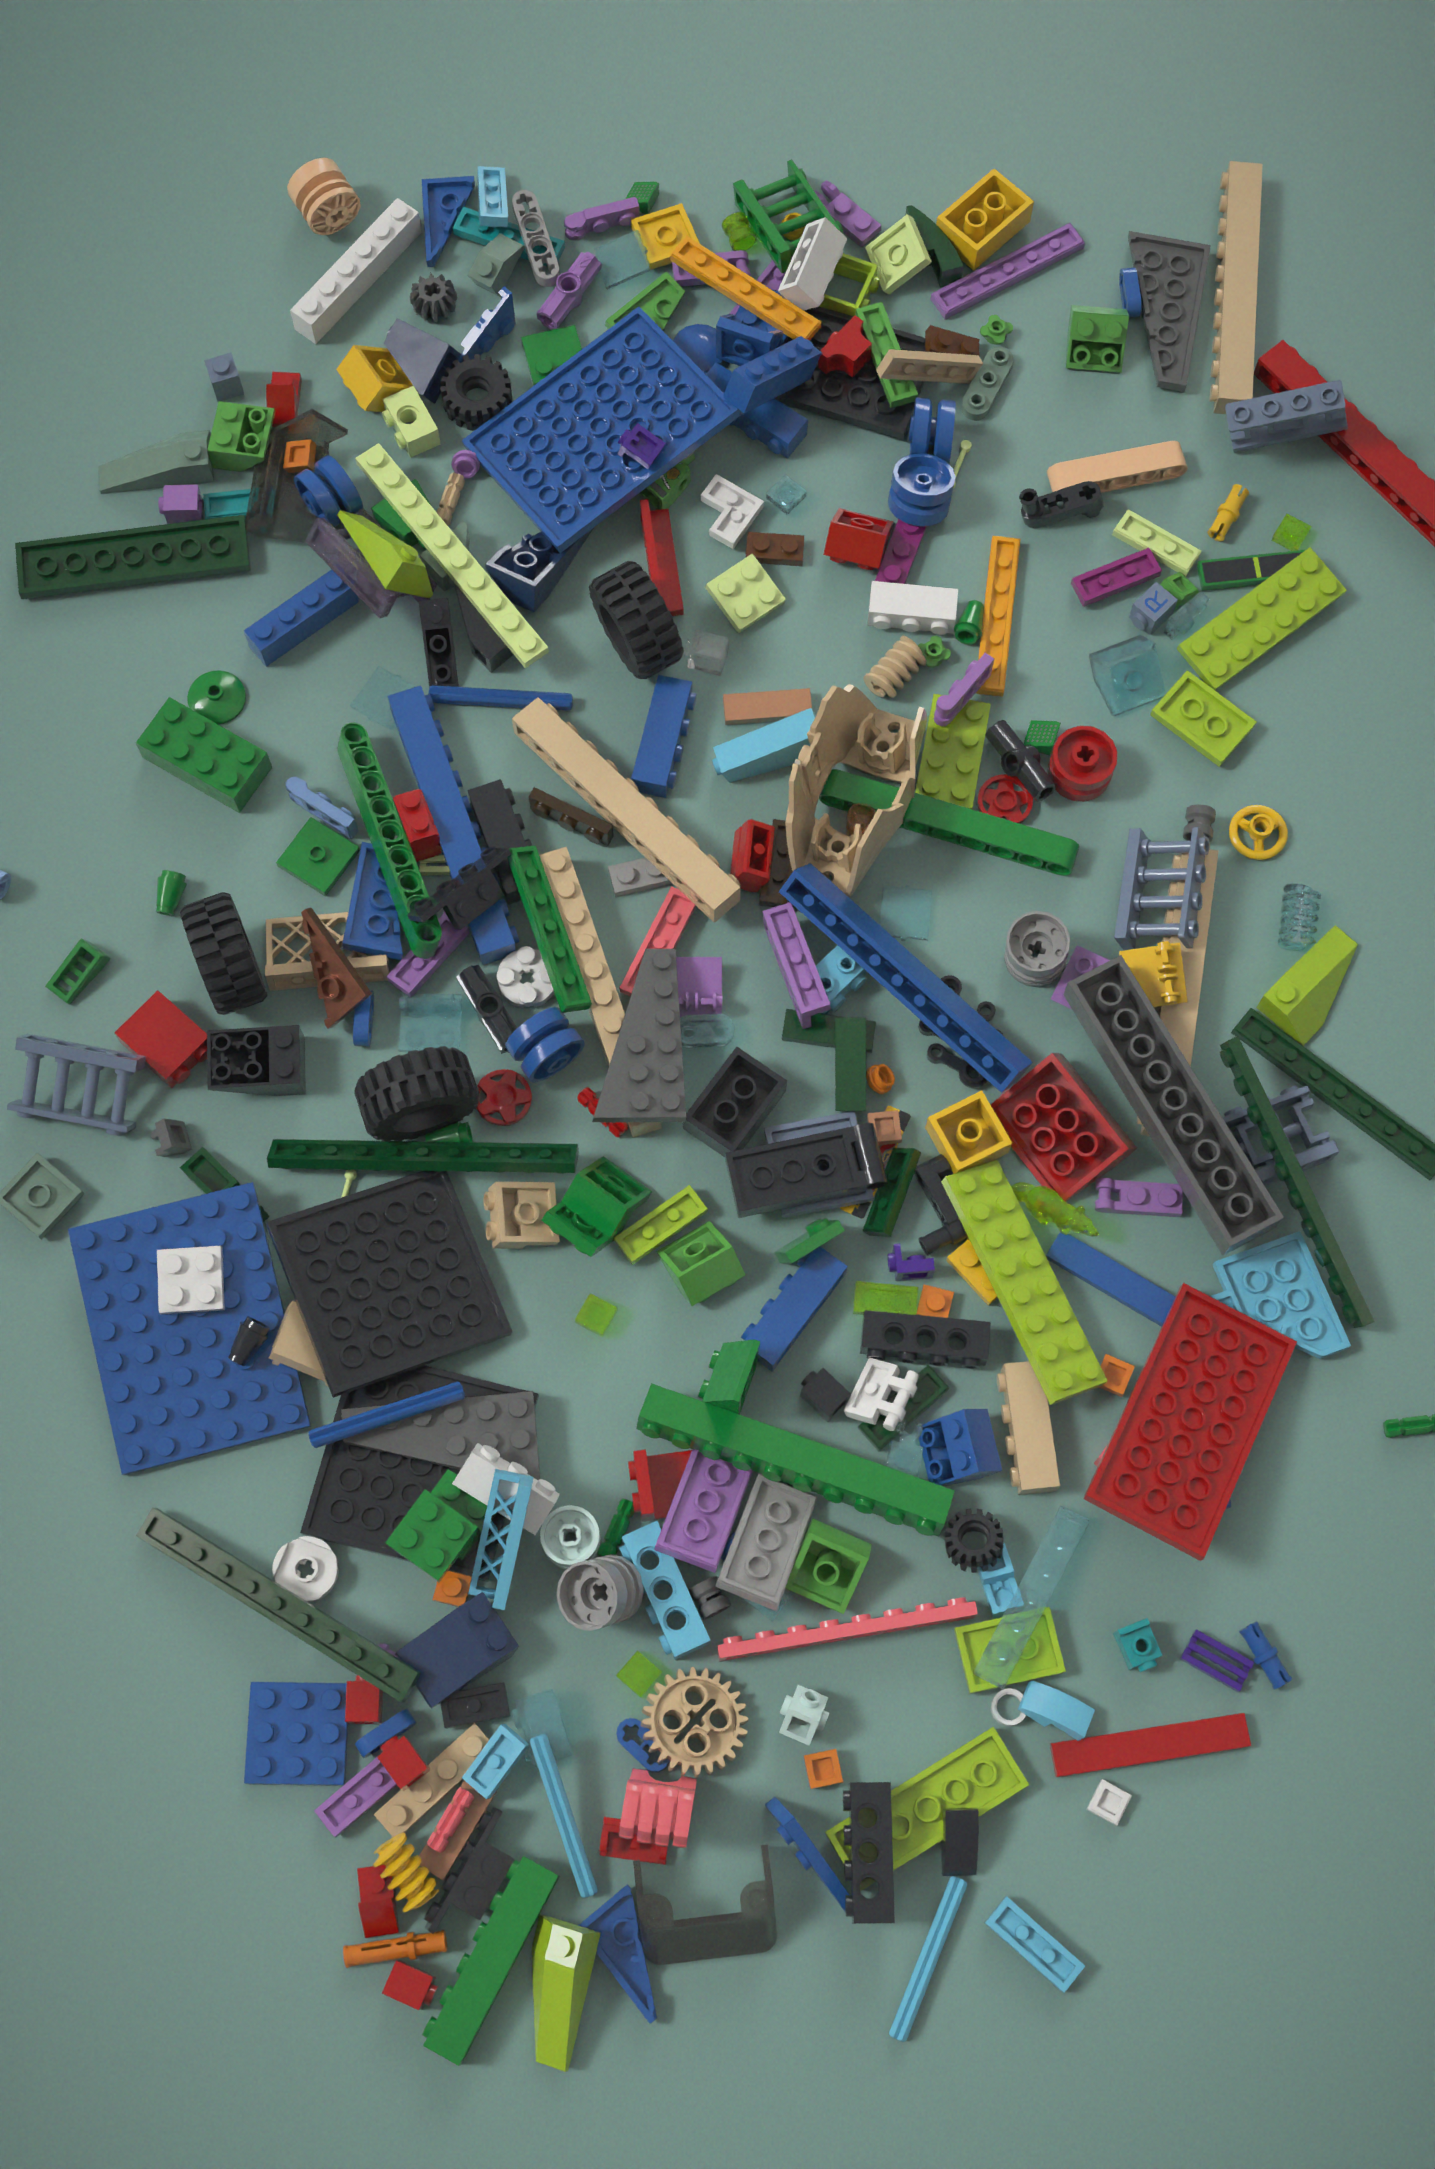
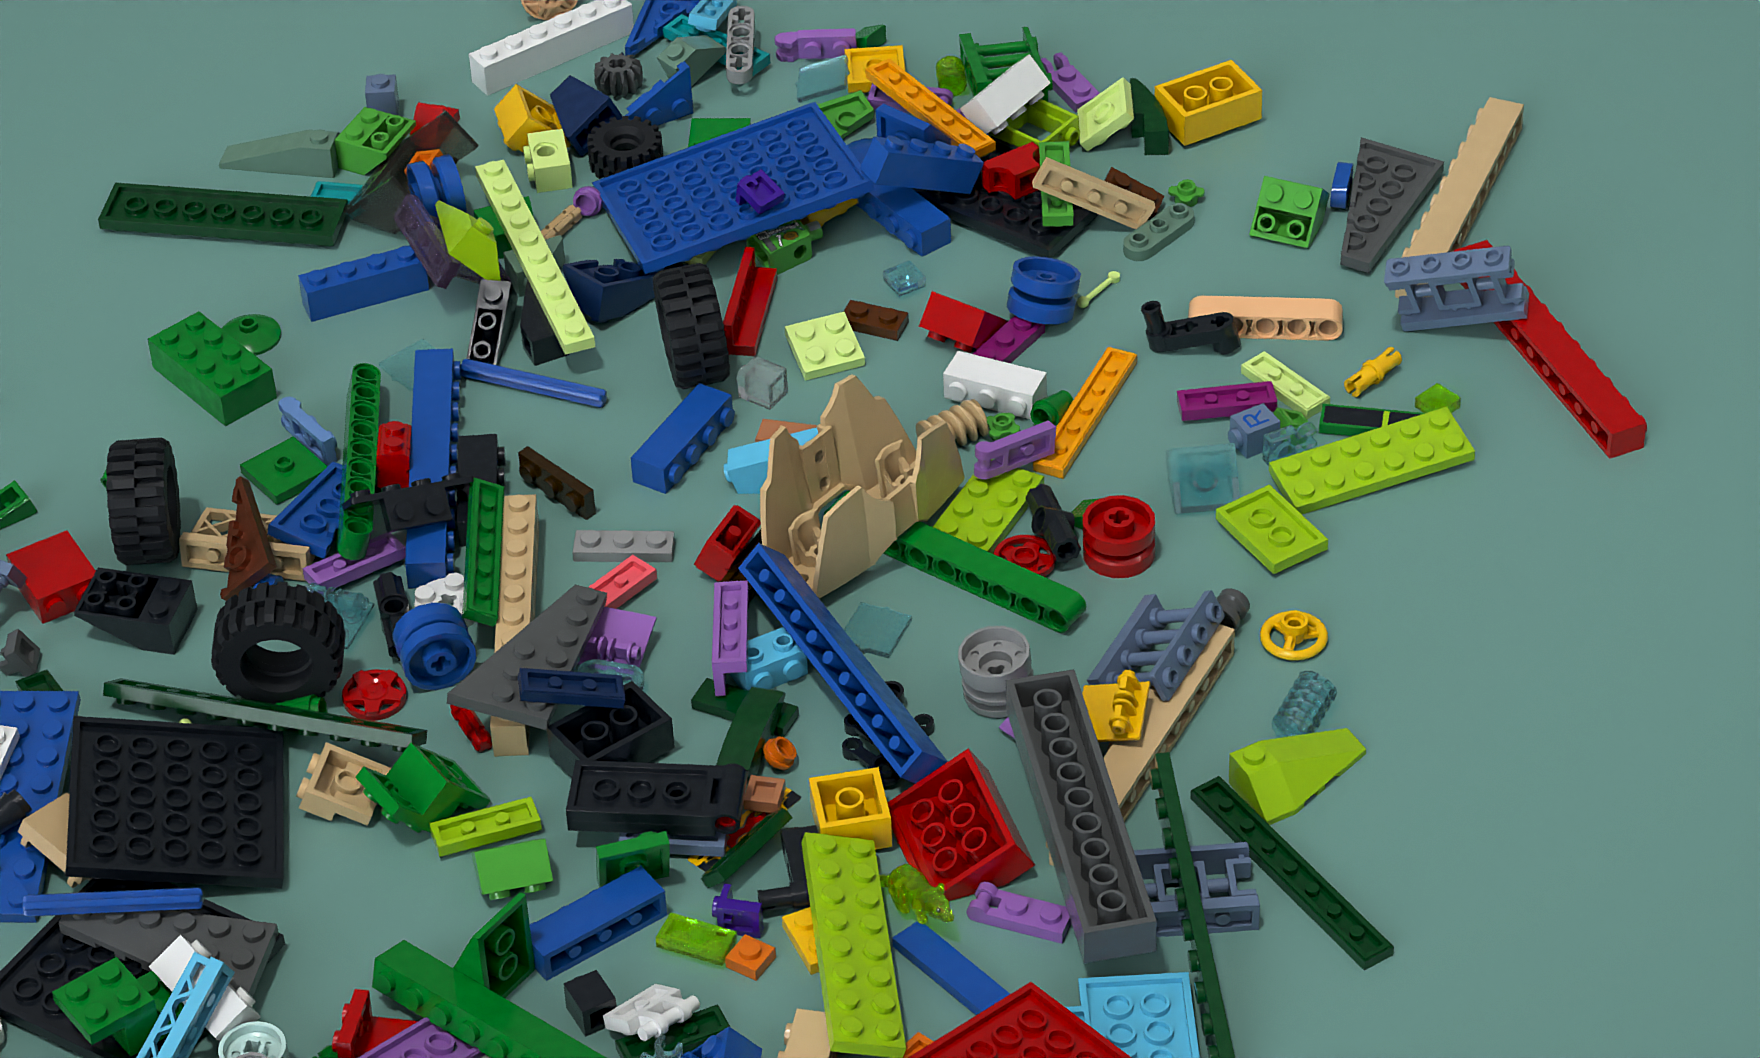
camera: 20 degrees right, 30 degrees down
(181, 503) = (291, 179): medium lavender brick -> none
(575, 279) = (756, 90): medium lavender piece -> none
(596, 1315) = (379, 886): clear neon green plate -> none
(627, 809) = (616, 484): tan brick -> none
(695, 1079) = (571, 688): none -> dark blue tile
(736, 507) = (843, 281): white plate -> none
(930, 430) = (1078, 243): blue wheel -> none
(972, 1333) = (725, 977): black brick -> none
(1007, 271) = (1220, 151): medium lavender tile -> none

